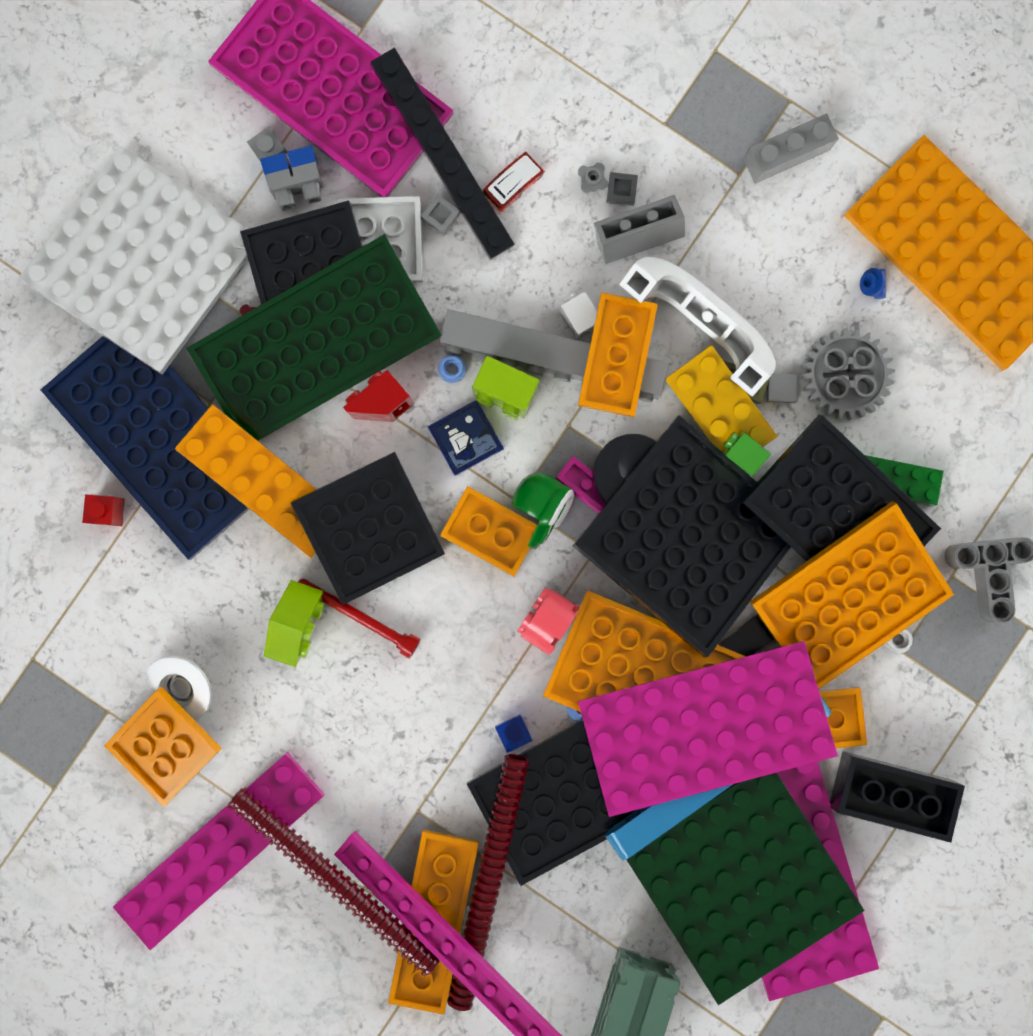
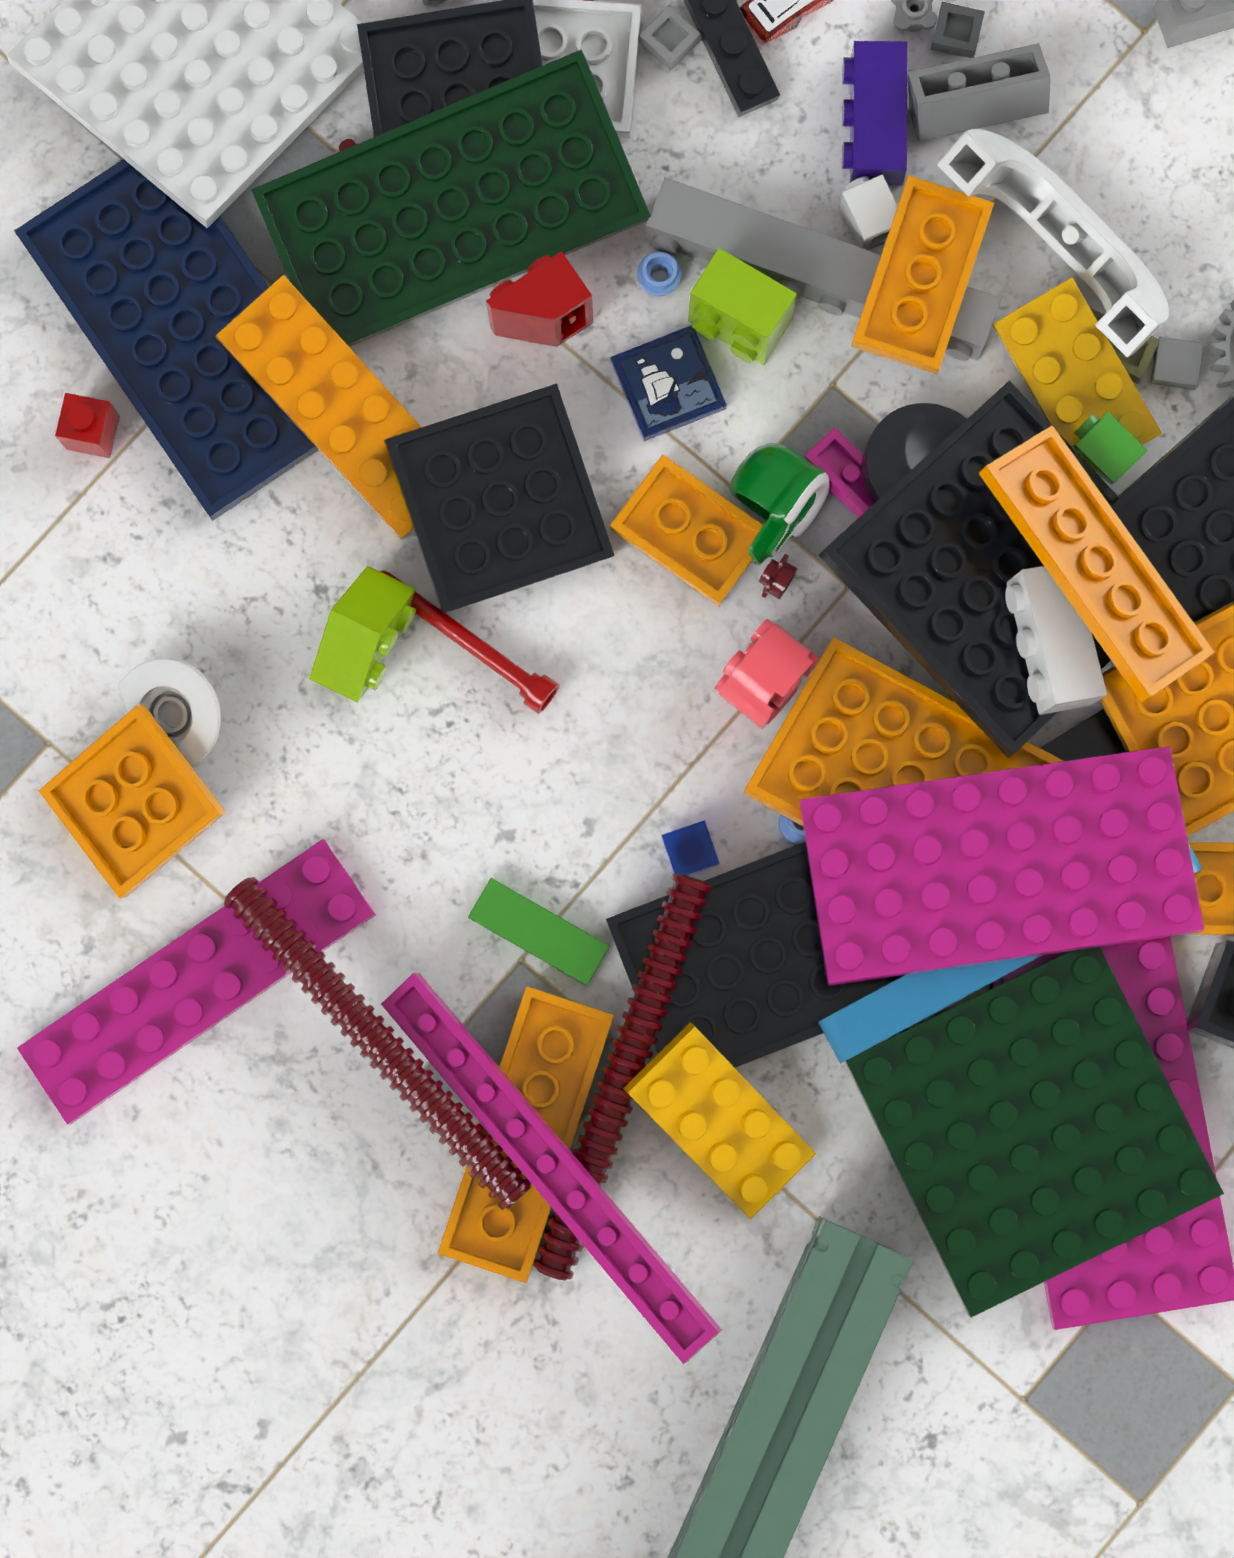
camera: 15 degrees right, 5 degrees down
(426, 794) = (539, 931): none -> bright green tile
(548, 555) = (777, 577): none -> dark red plate
(550, 902) = (720, 1120): none -> yellow plate
(576, 248) = (876, 111): none -> dark purple brick
(726, 582) = (1054, 644): none -> white brick
(747, 534) = (1096, 563): none -> light orange plate

